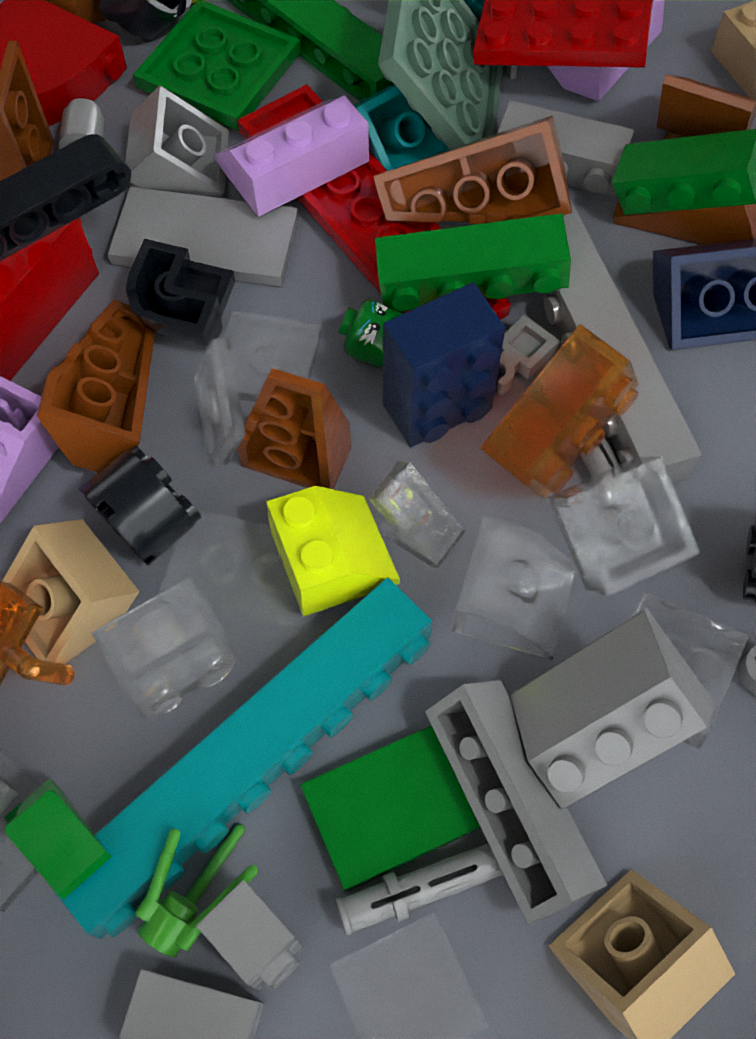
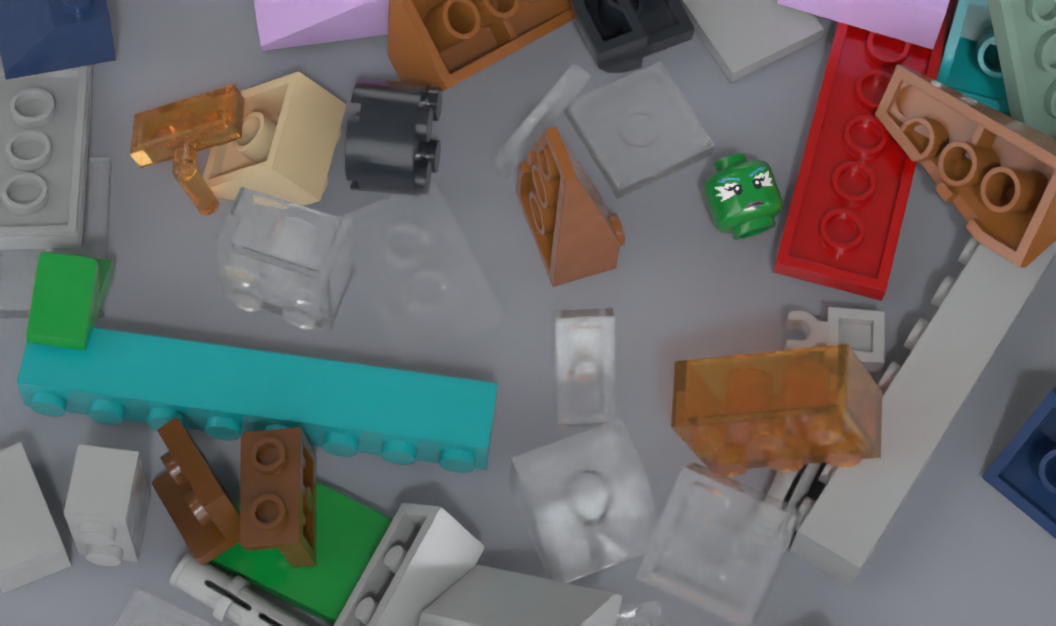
camera: 45 degrees right, 0 degrees up
(170, 921) = (73, 428): bright green plant -> none
(300, 861) = (195, 496): none -> reddish brown bracket
(328, 547) = (489, 317): neon yellow slope -> none
(351, 798) = (278, 494): none -> reddish brown bracket
(441, 364) = (734, 271): dark blue brick -> none
(496, 256) = (882, 222): green brick -> none

